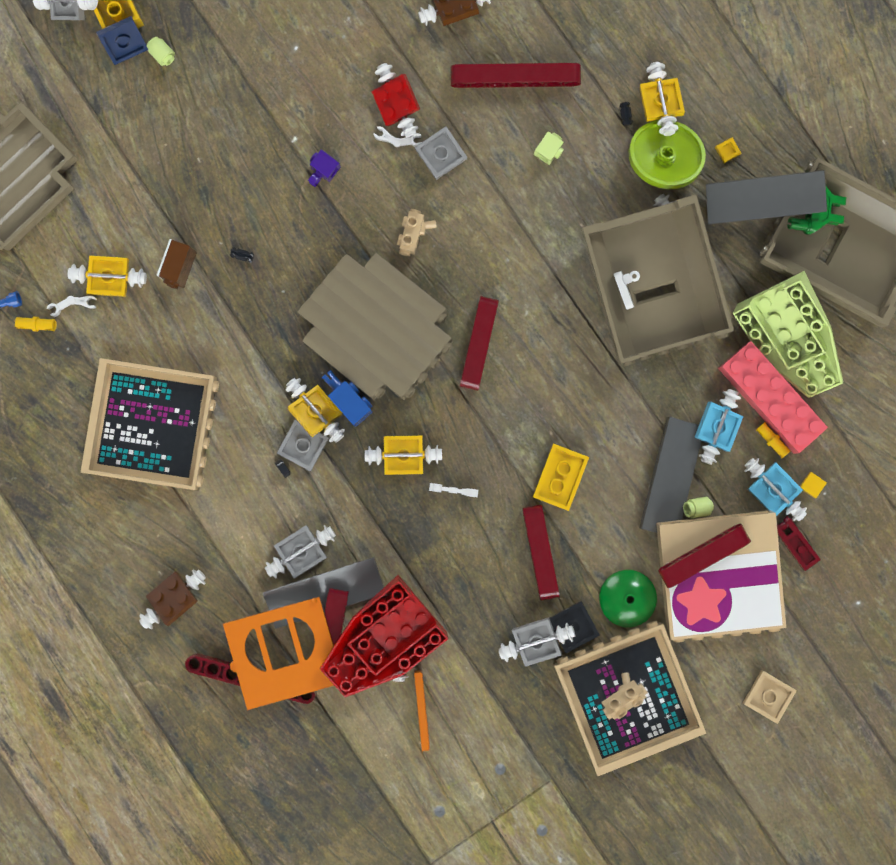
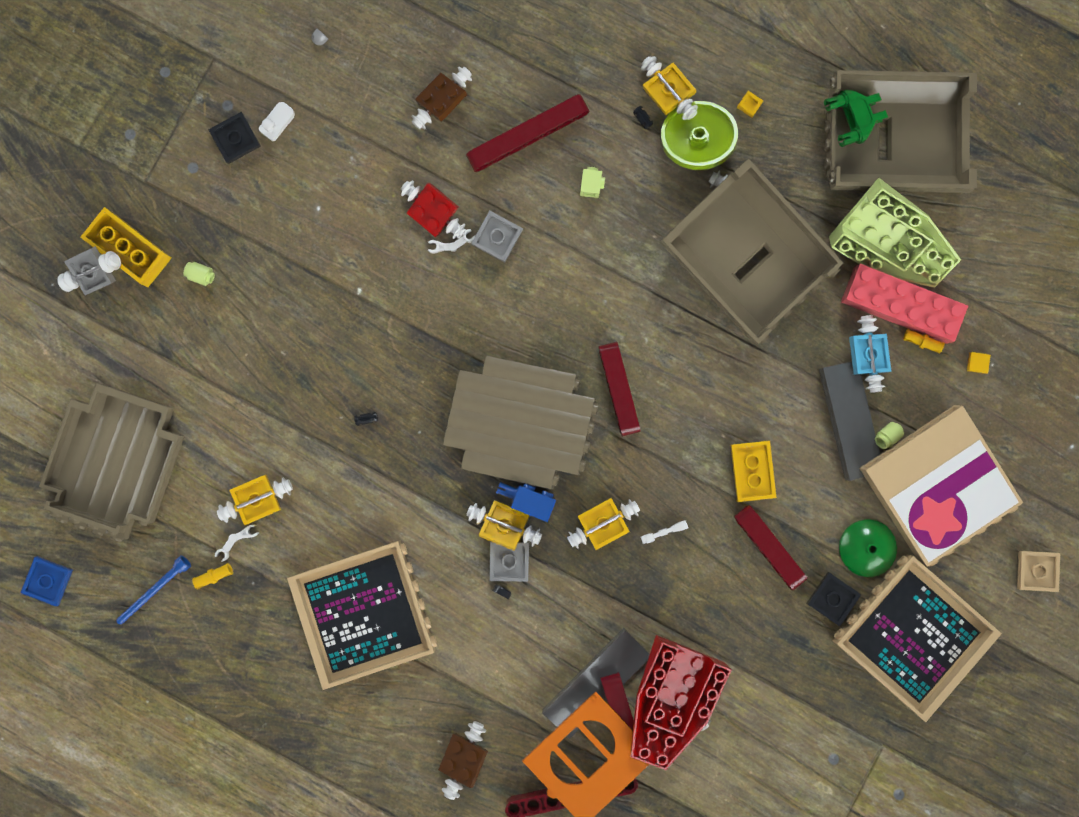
camera: 25 degrees left, 0 degrees up
(122, 40) = (159, 281): dark blue tile -> none
(176, 264) = (312, 458): reddish brown piece -> none
(300, 551) = (556, 658): light grey plate -> none
(323, 166) = (399, 302): dark purple brick -> none
(414, 227) = (508, 315): tan brick -> none
(422, 710) = (738, 743): orange tile -> none
(536, 642) = (809, 630): light grey plate -> none
(622, 281) = (719, 269): white piece -> none
(626, 697) = (917, 637): tan brick -> none
(704, 555) = (920, 477): dark red beam -> none
(766, 197) = (809, 128): dark grey arch -> none
(775, 489) = (948, 384): medium azure plate -> none
(797, 544) = (993, 423): dark red plate -> none

